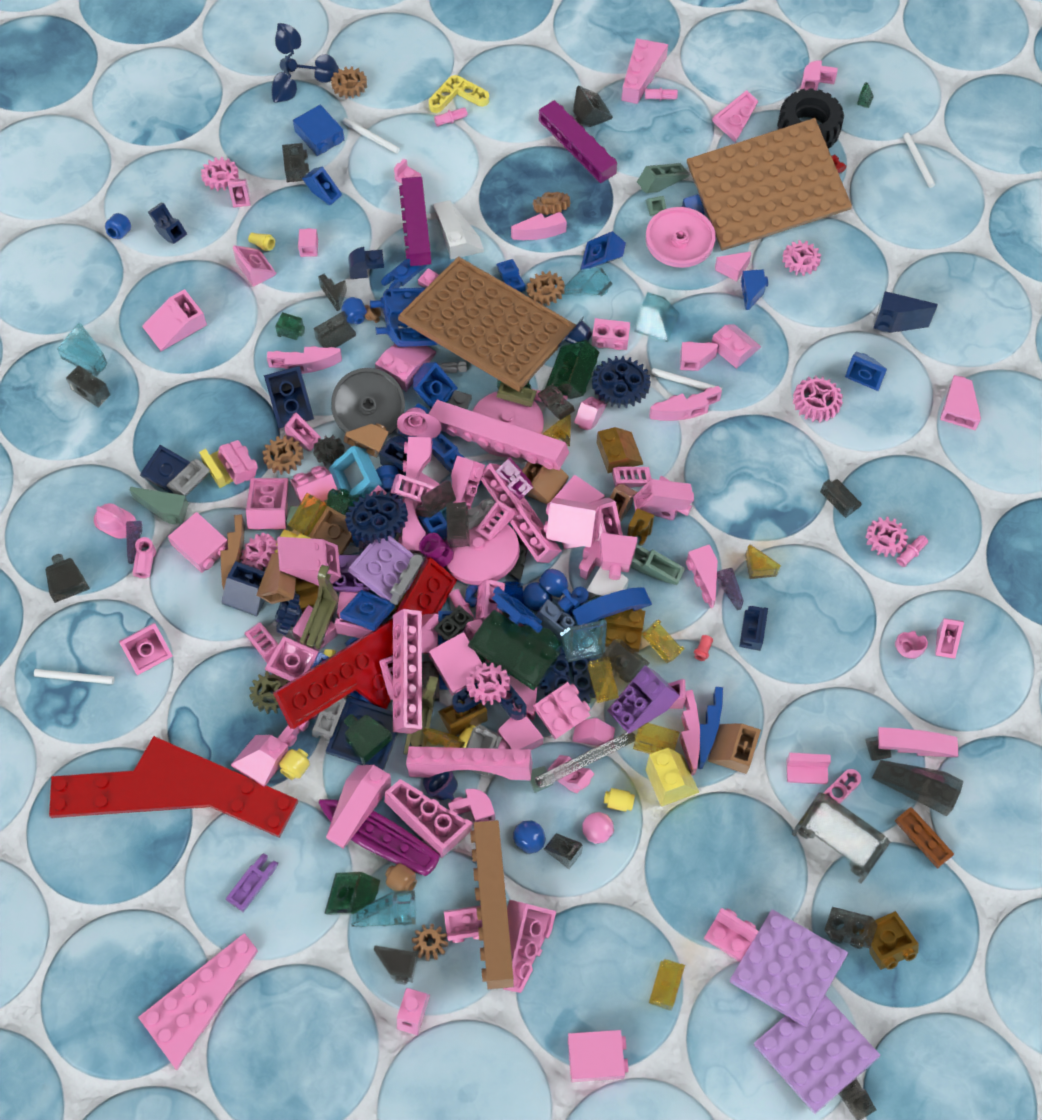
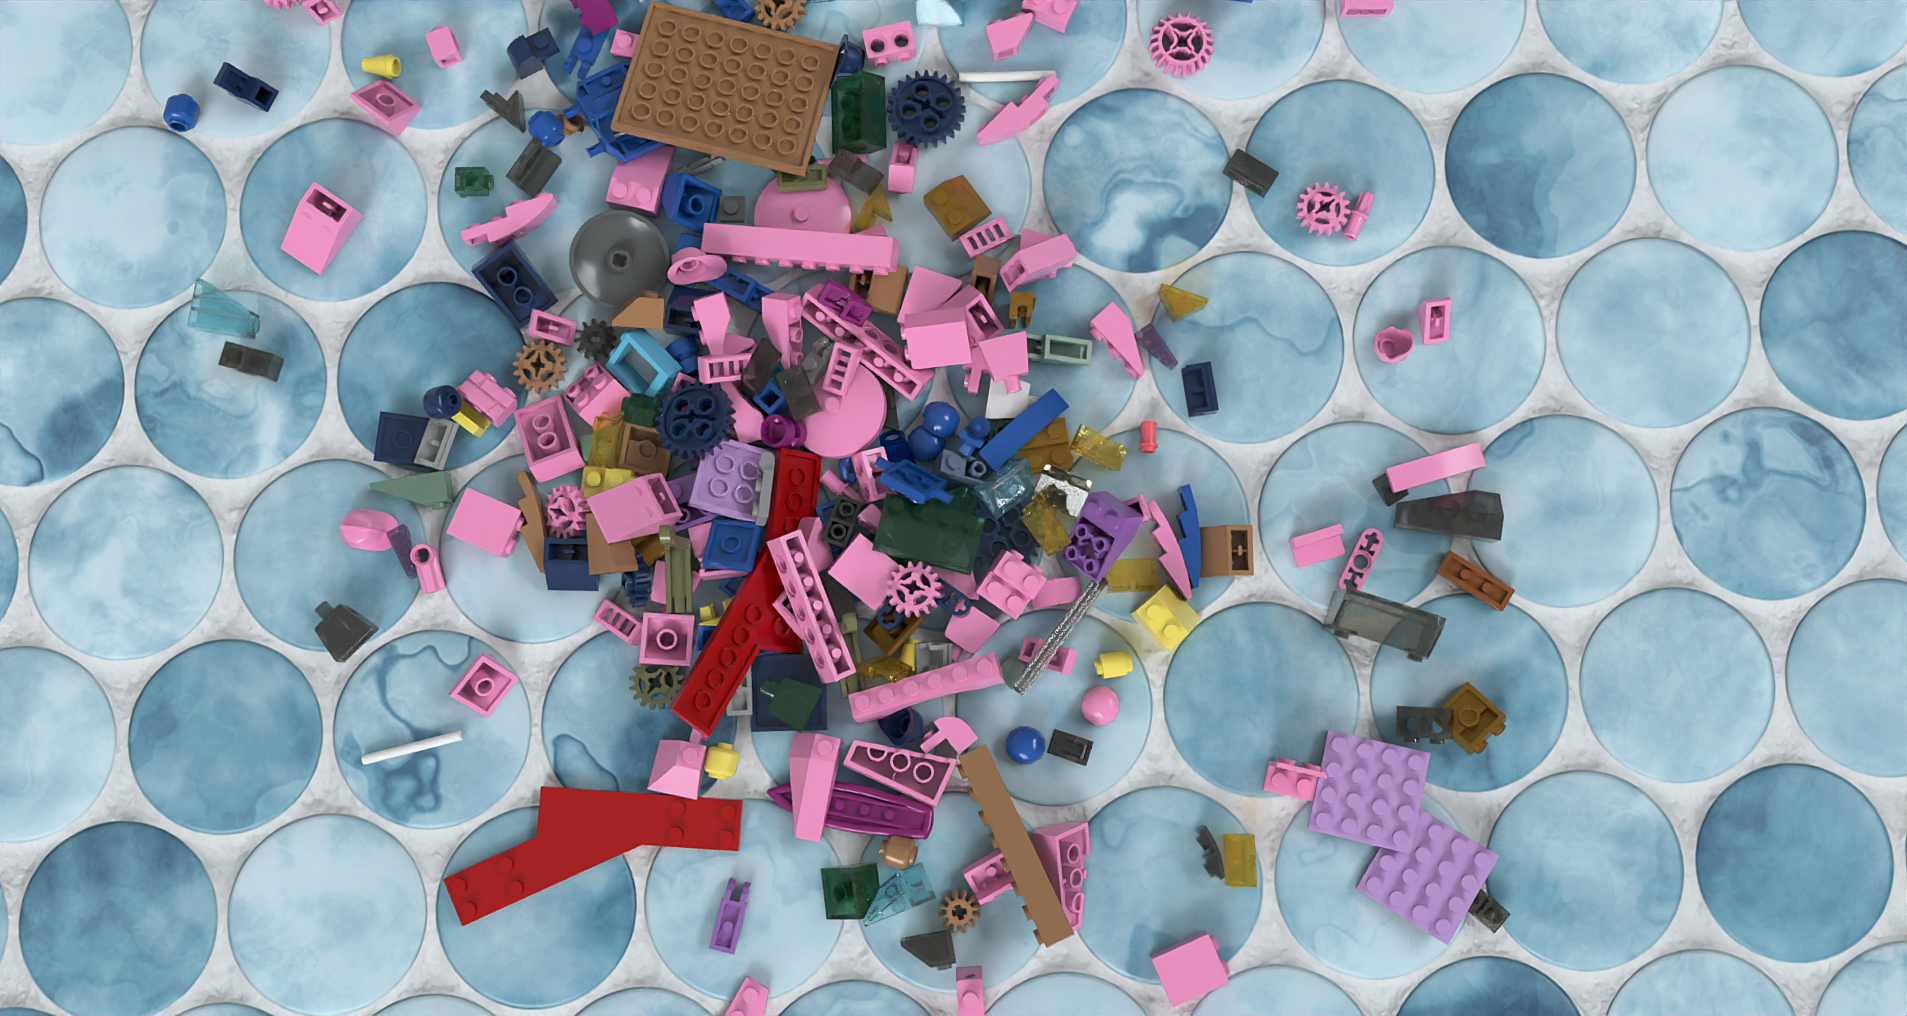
camera: 15 degrees left, 20 degrees up
(205, 448) = (442, 402): none -> dark blue head
(644, 975) = (1213, 858): none -> clear smoke slope

